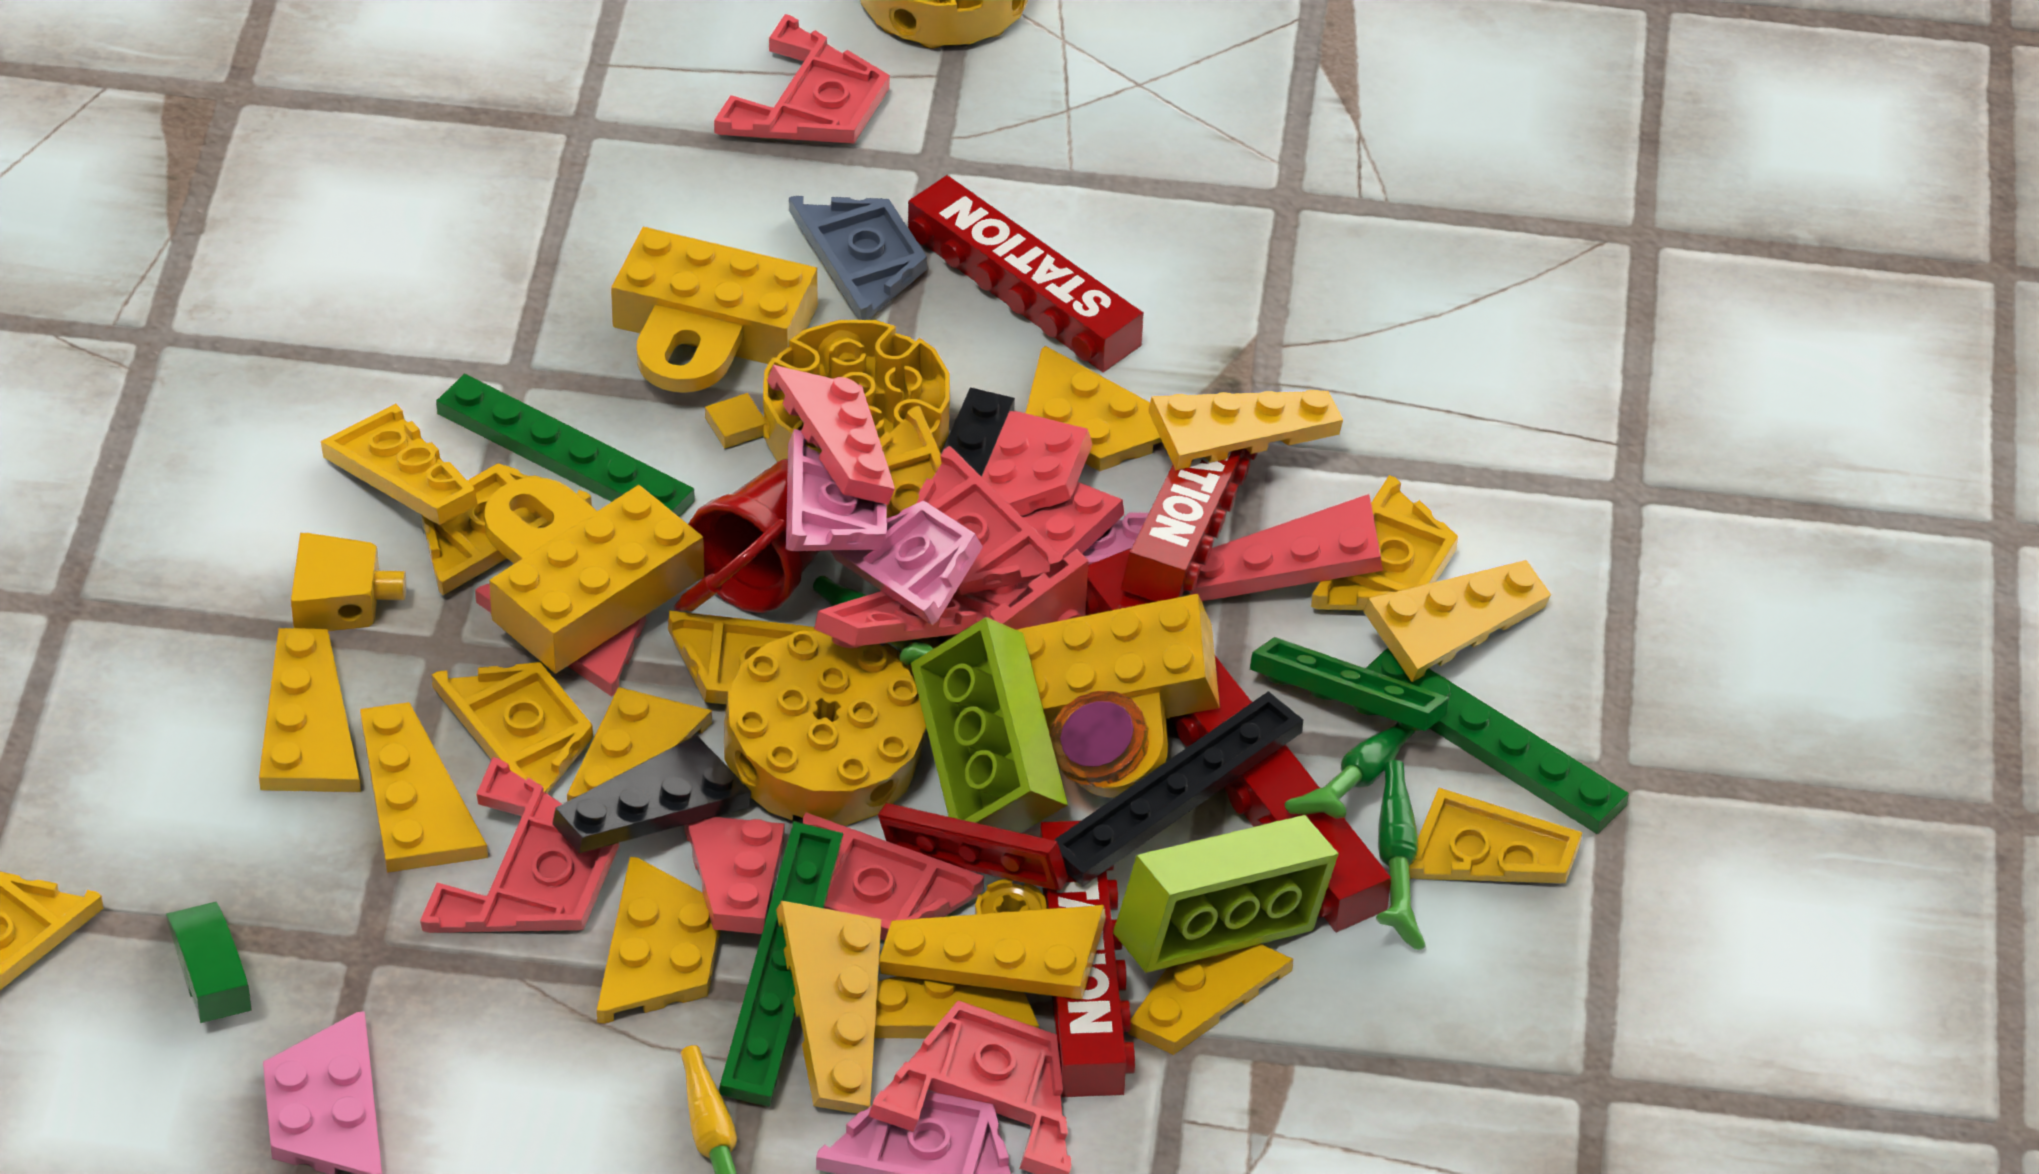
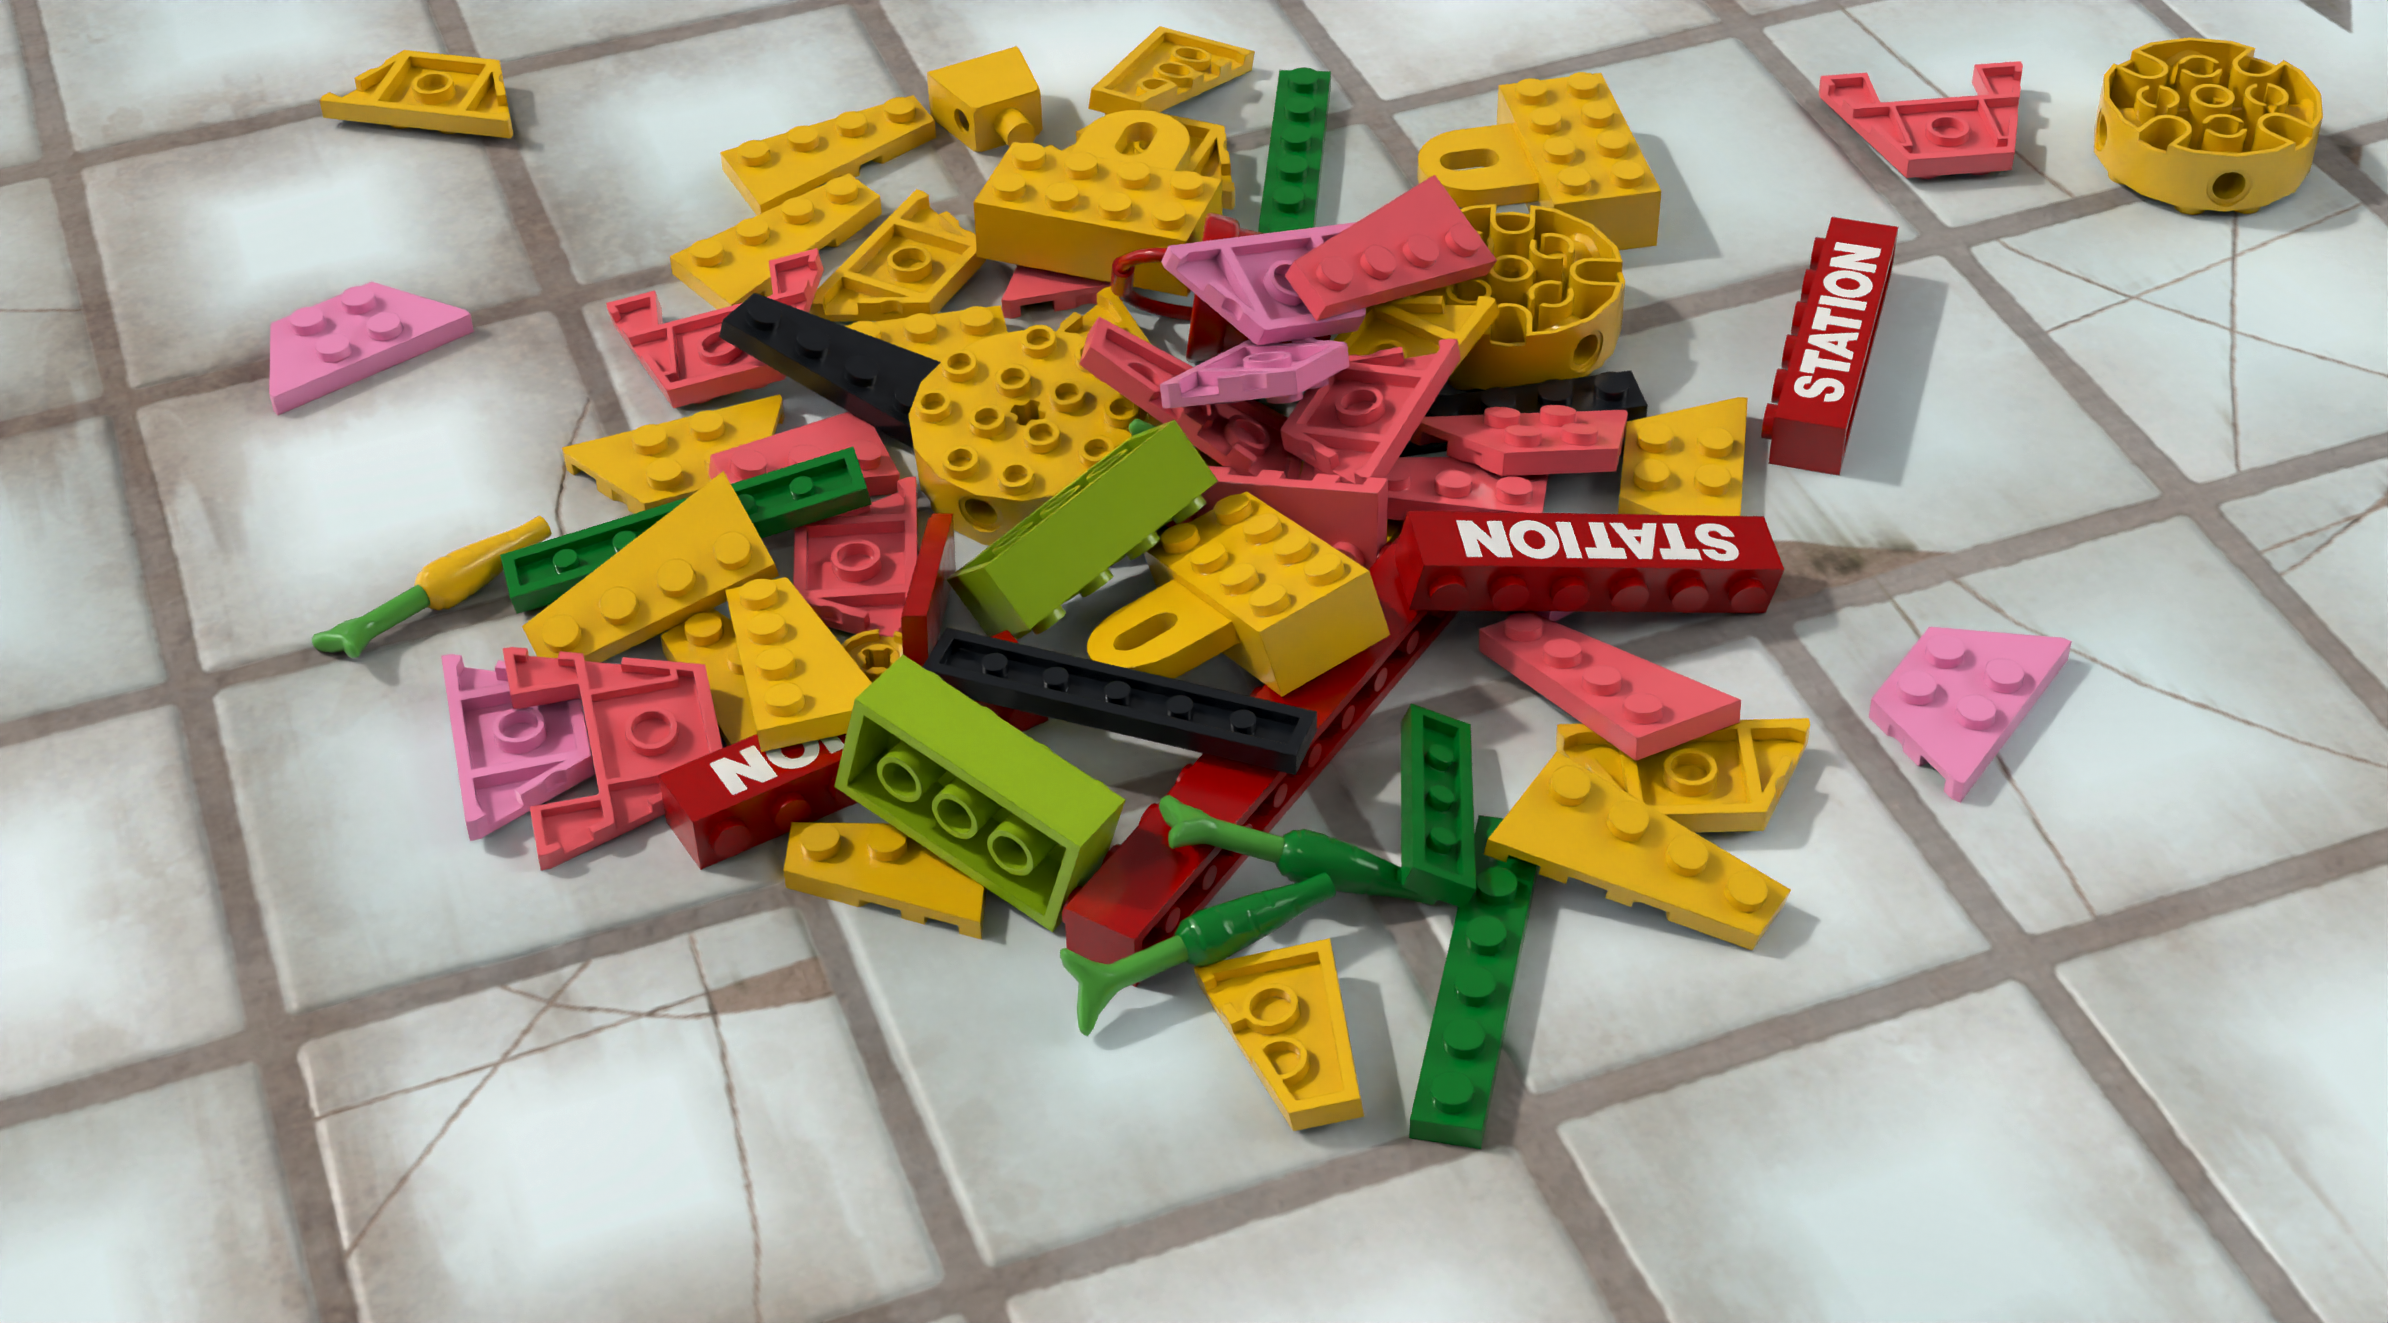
camera: 65 degrees right, 5 degrees down
(209, 962) = (469, 205): green slope -> none
(862, 248) = (1750, 234): sand blue wing -> none
(1099, 738) = (1137, 609): tile -> none
(1229, 422) = (1736, 548): yellow wing -> none
(1403, 400) = (1964, 697): none -> bright pink wing

